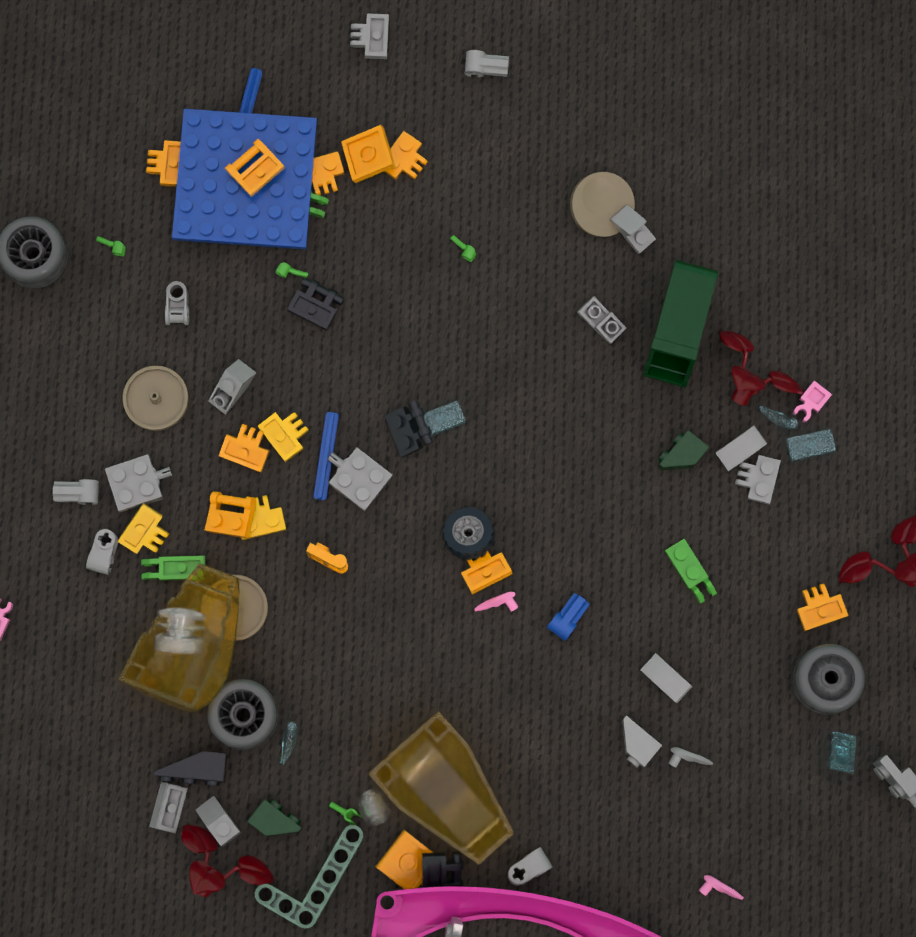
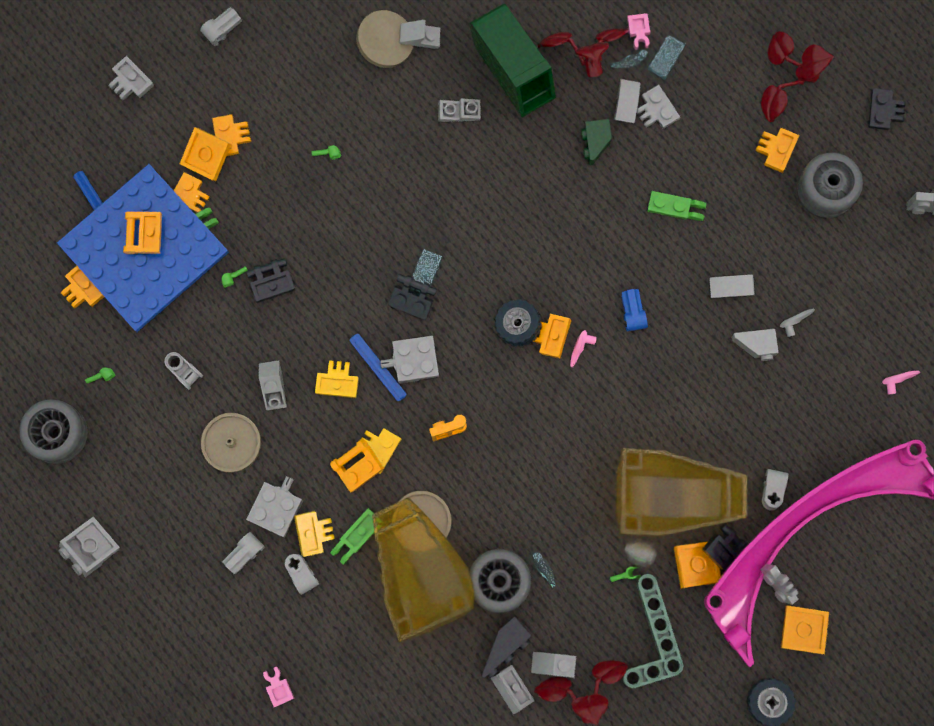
camera: 40 degrees left, 0 degrees up
(179, 631) = (407, 569): clear wheel -> none
(245, 449) = (323, 415): light orange hinge -> none
(272, 821) = (588, 628): dark green slope -> none
(842, 752) = (884, 221): clear light blue slope -> none

